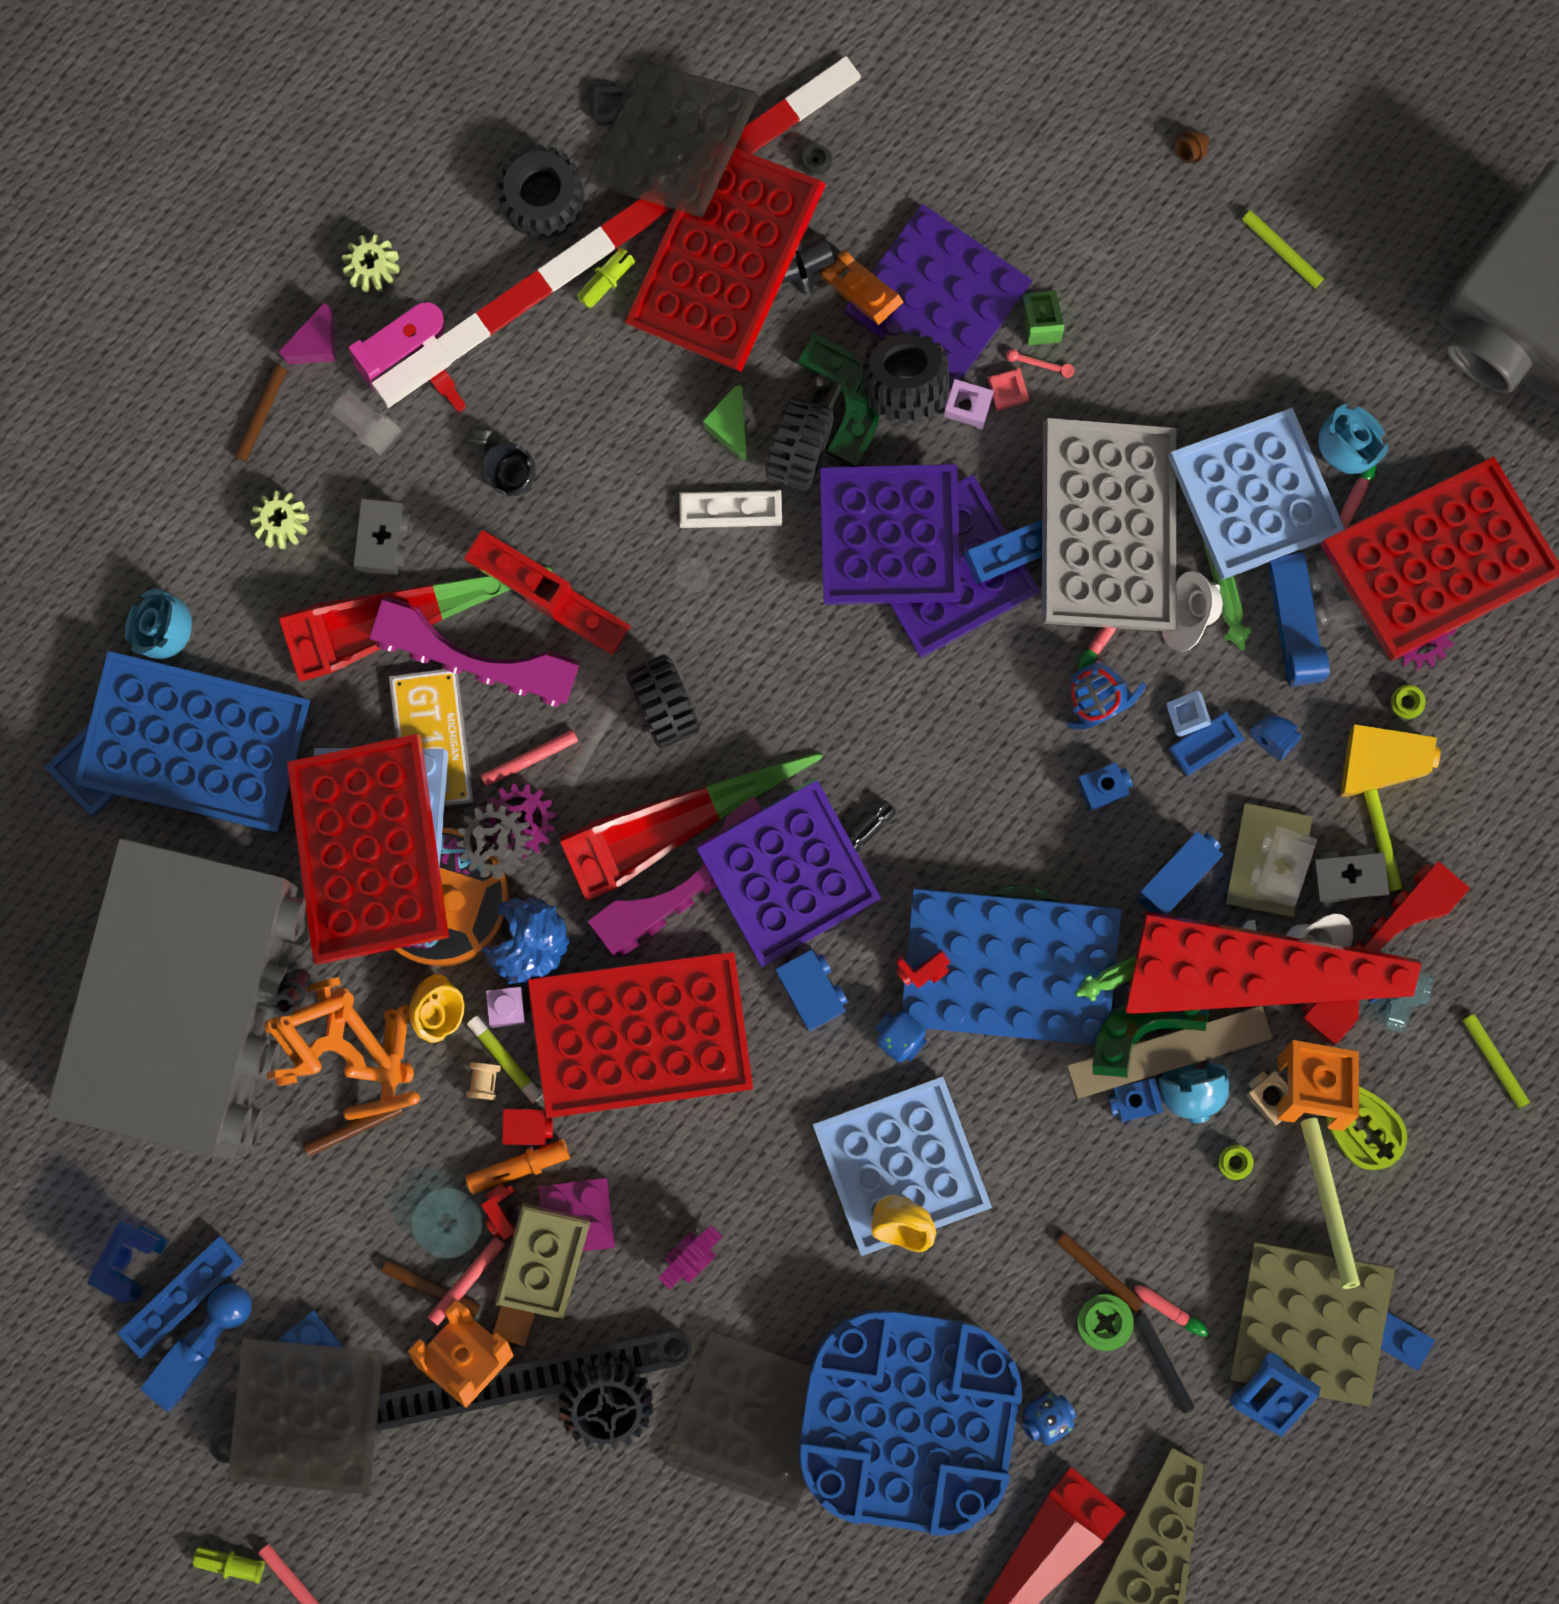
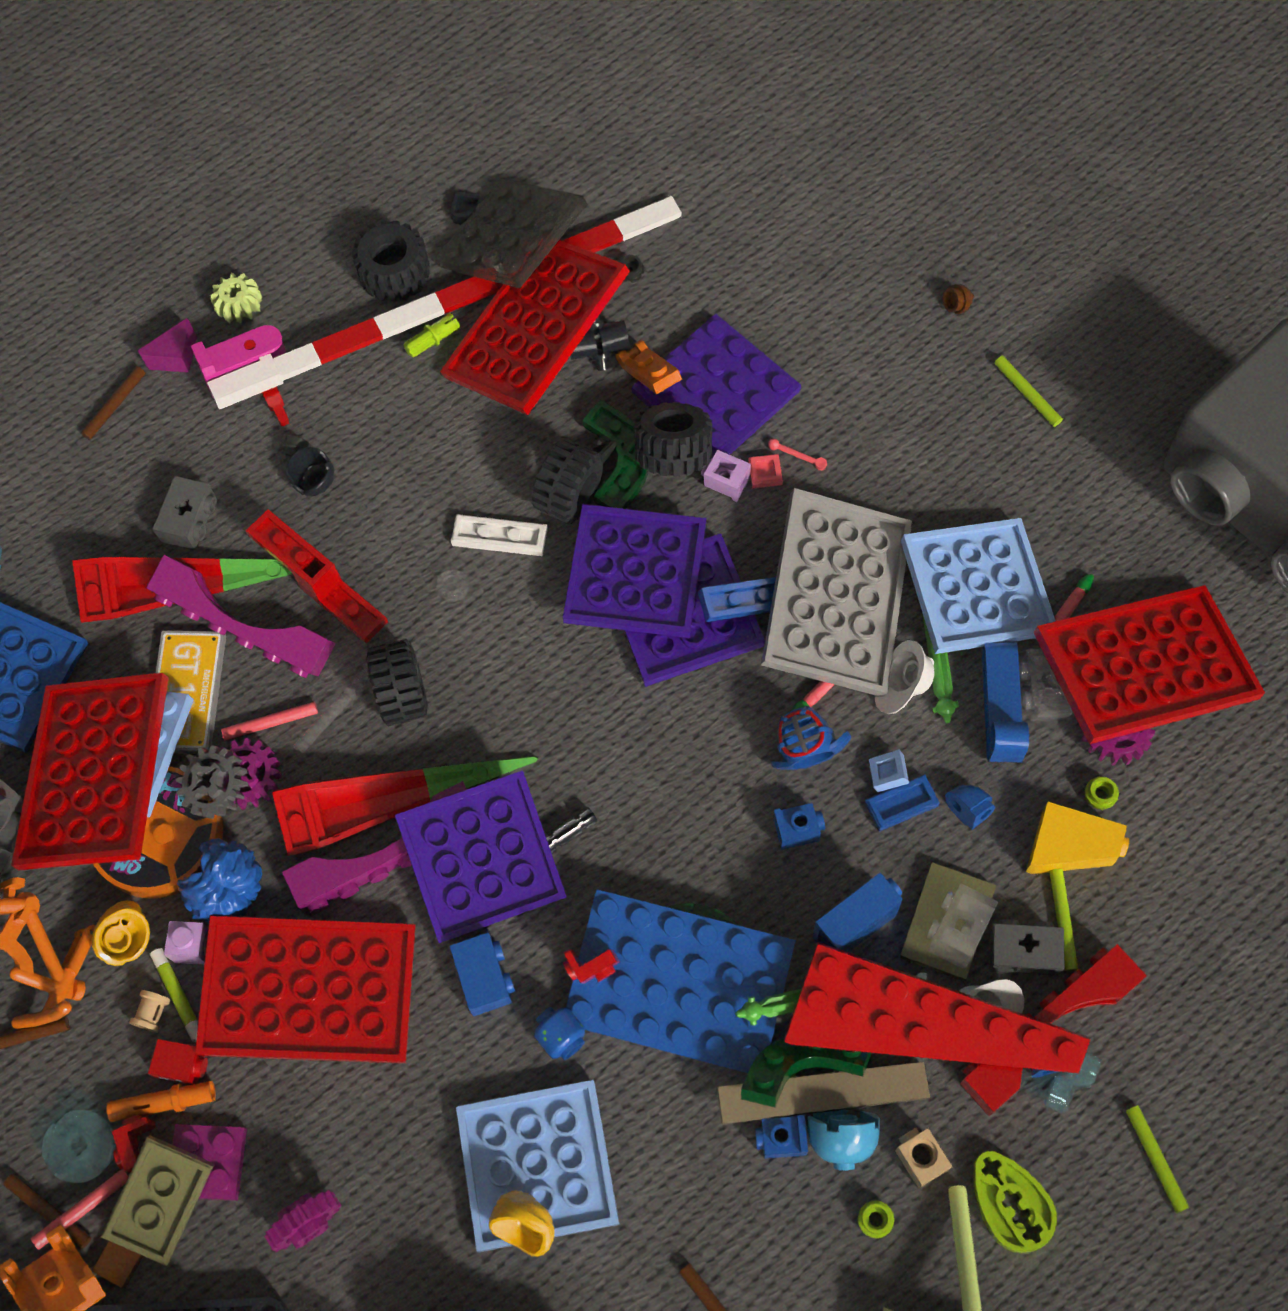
camera: 10 degrees right, 15 degrees down
(288, 527) = (102, 487): yellowish green gear -> none
(373, 428) = (201, 424): clear piece -> none
(728, 424) = (511, 461): bright green slope -> none
(1042, 317) = (805, 418): bright green slope -> none
(1320, 1083) = (972, 1147): orange panel -> none
(1351, 440) = (1072, 551): dark azure cylinder -> none

